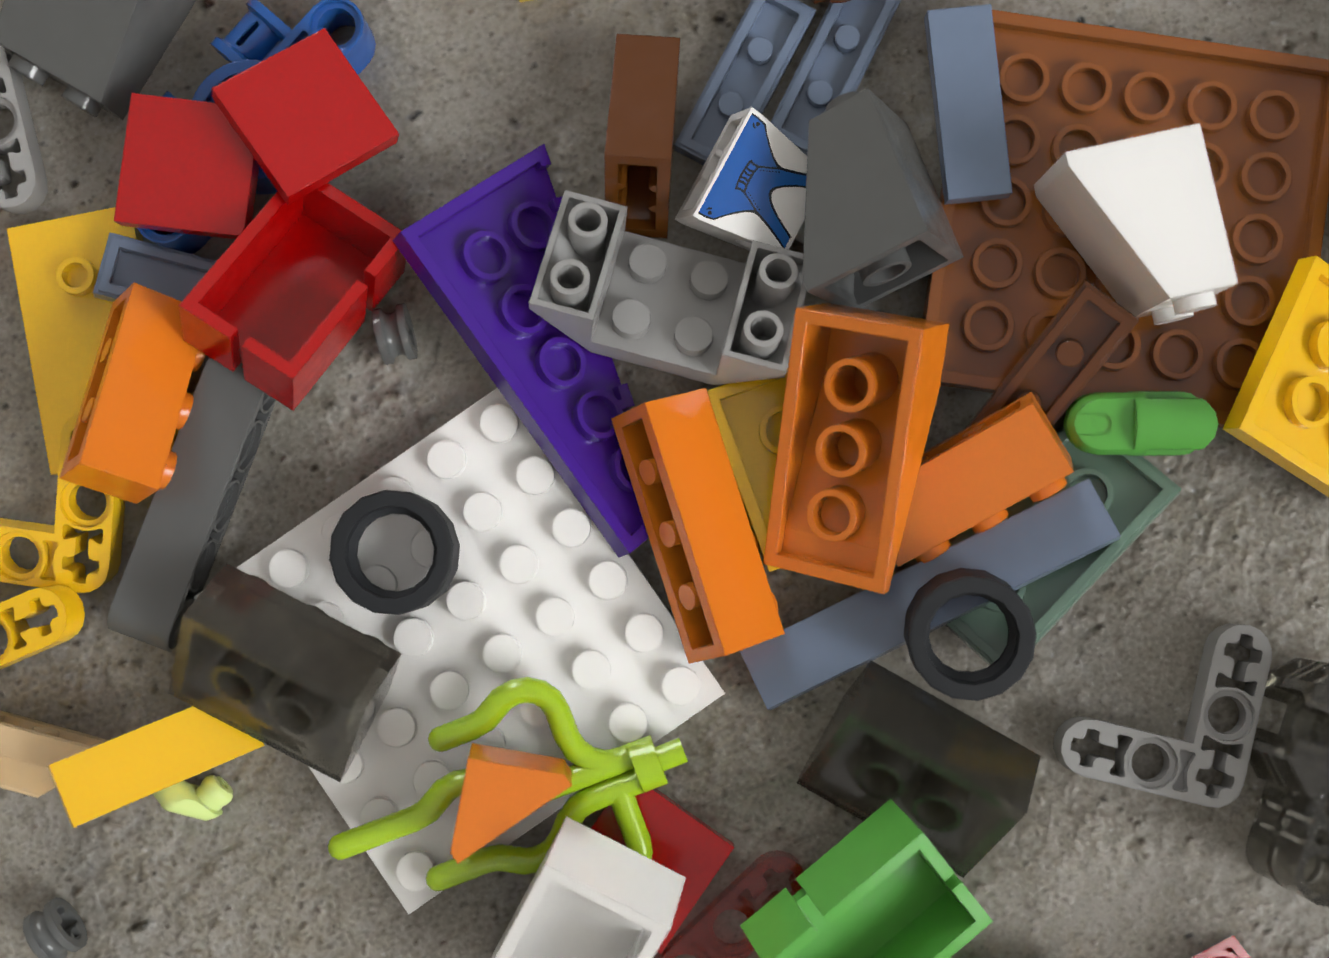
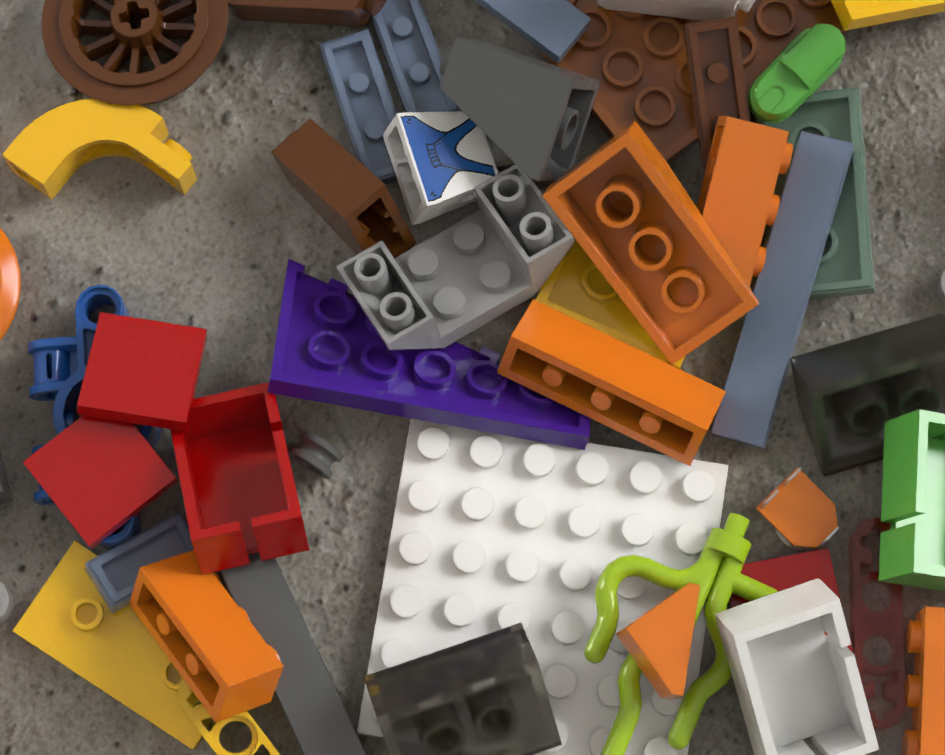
camera: 50 degrees left, 10 degrees down
(345, 551) = (456, 531): black tyre -> none
(741, 796) = (800, 512): none -> orange piece
(983, 682) = (861, 256): black tyre -> none

